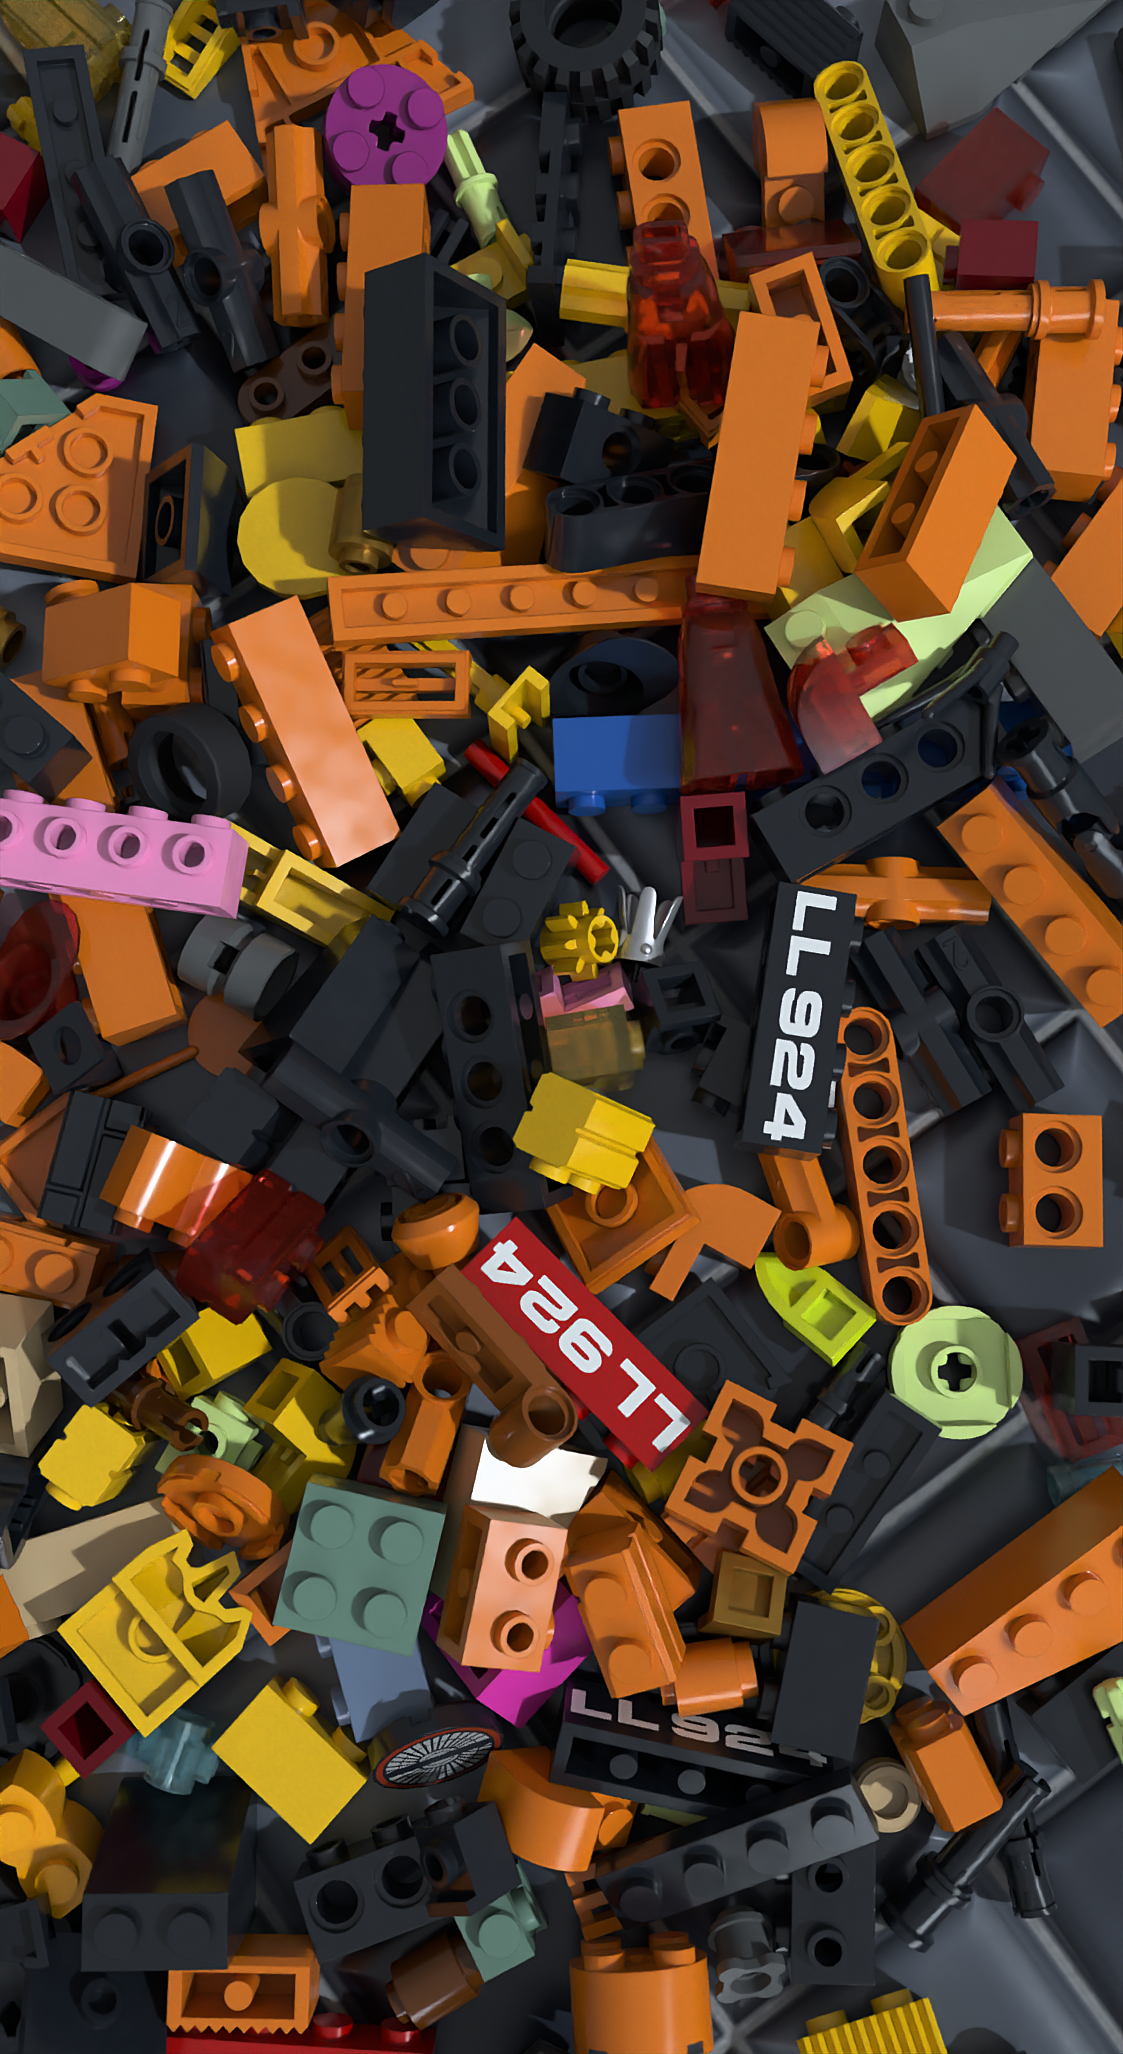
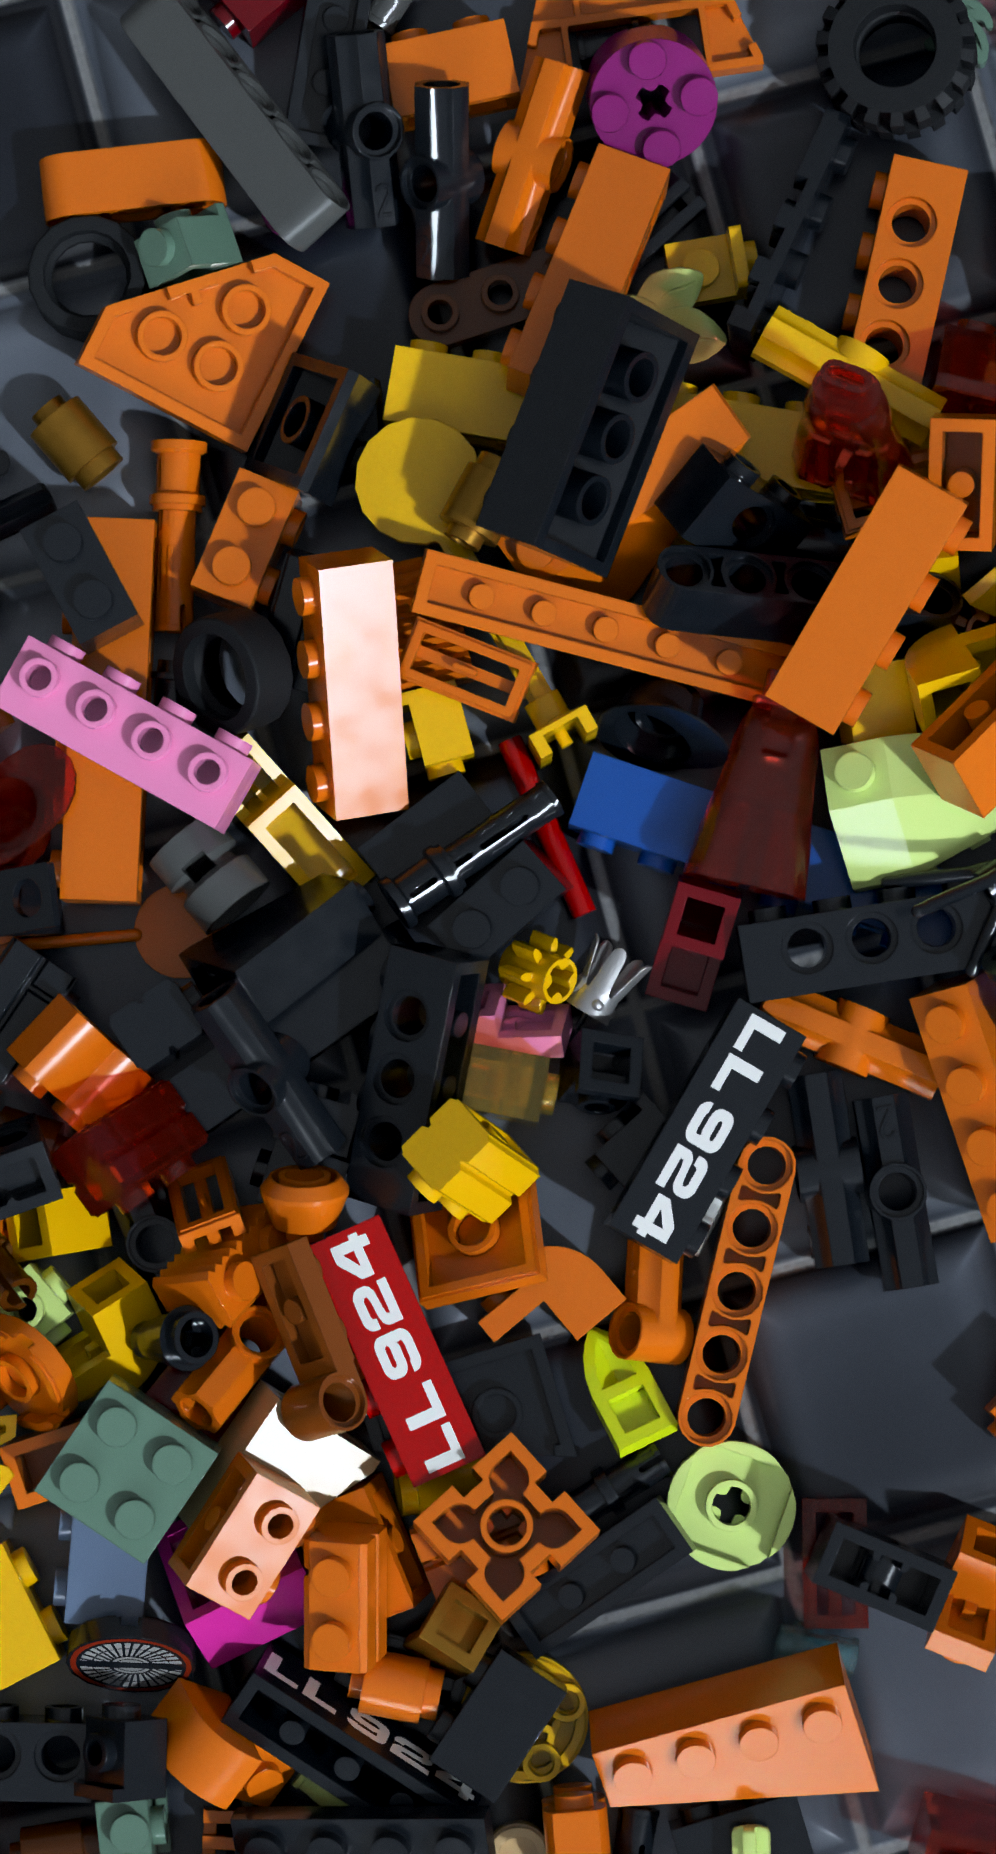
camera: 20 degrees right, 5 degrees up
(111, 642) = (203, 531): orange brick -> none
(474, 187) = (726, 173): yellowish green axle -> none
(827, 690) = (856, 838): clear red brick -> none
(1072, 1183) = (908, 1373): orange brick -> none

